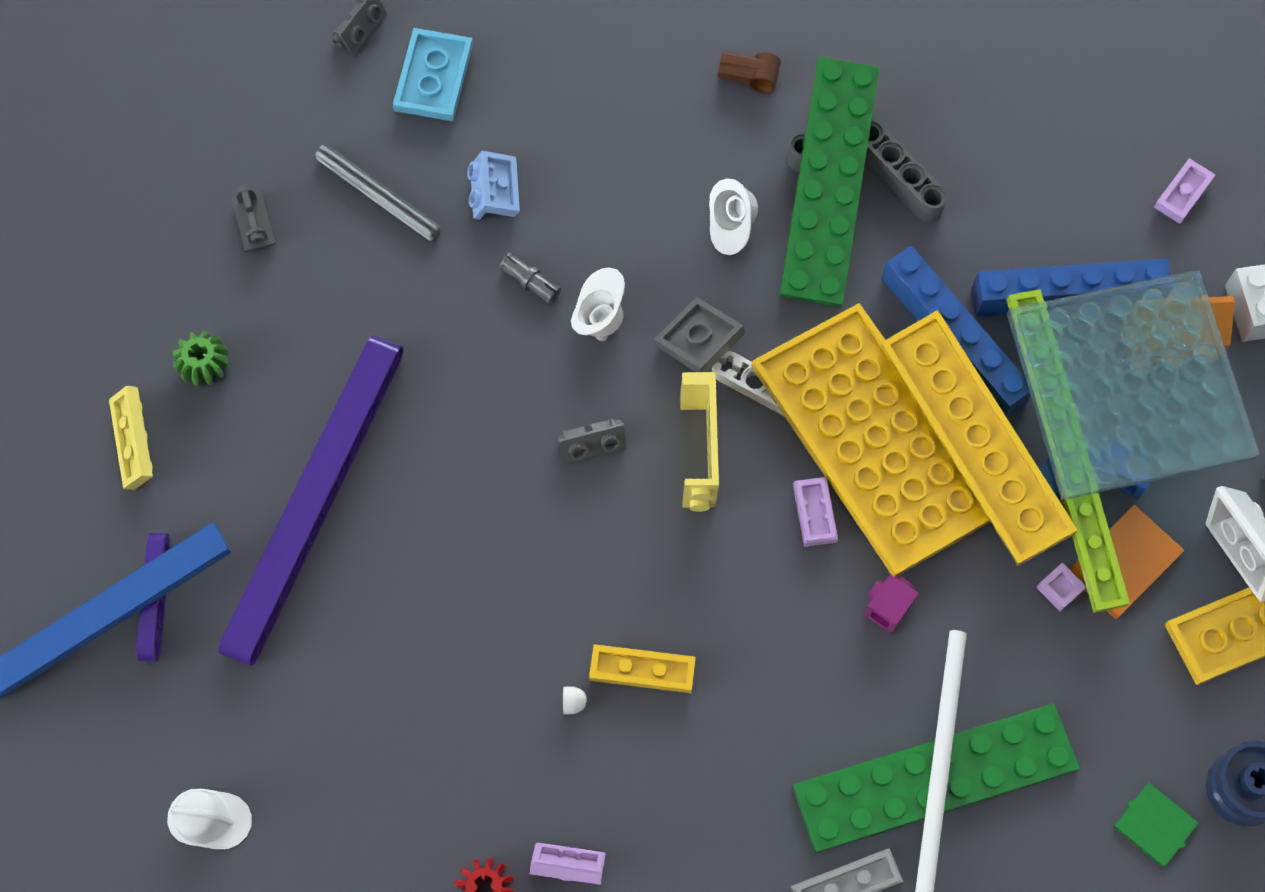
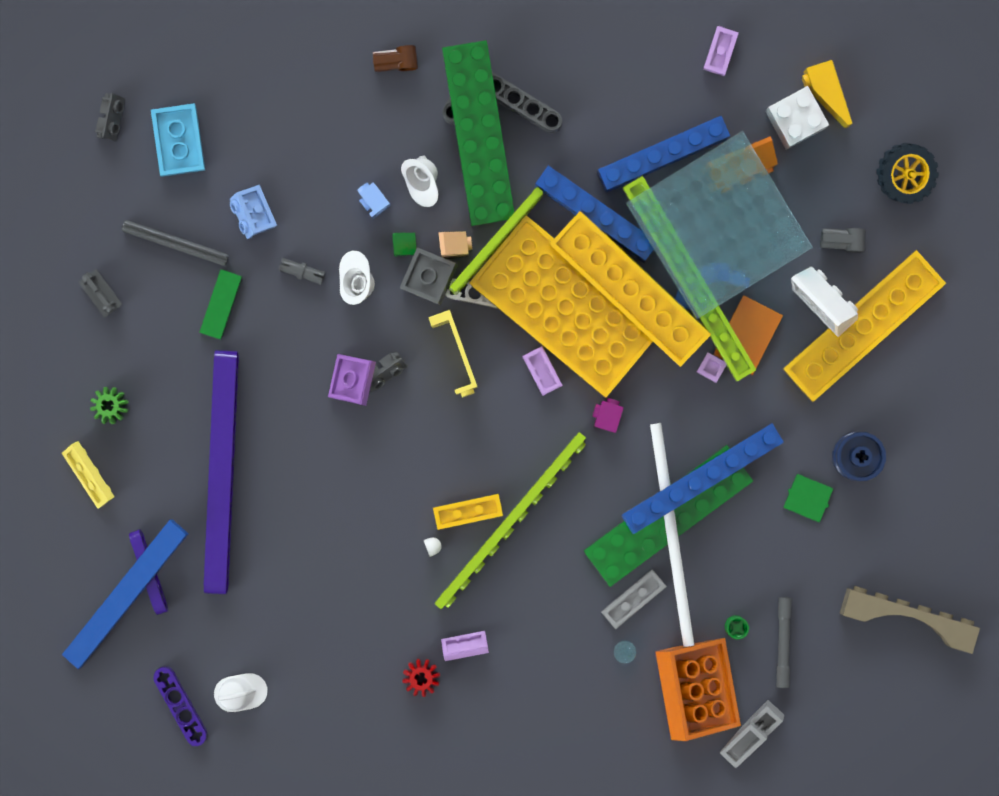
camera: 20 degrees left, 20 degrees up
(107, 807) = (183, 704): none -> dark purple beam
(405, 285) = (220, 304): none -> green tile
(544, 431) = (351, 379): none -> medium lavender tile
(659, 221) = (373, 199): none -> light blue brick
(679, 288) = (404, 244): none -> green slope
(688, 710) = (505, 528): none -> lime plate
(749, 304) = (454, 244): none -> light nougat slope
(795, 325) = (496, 241): none -> lime tile
(1004, 733) = (702, 478): none -> blue plate

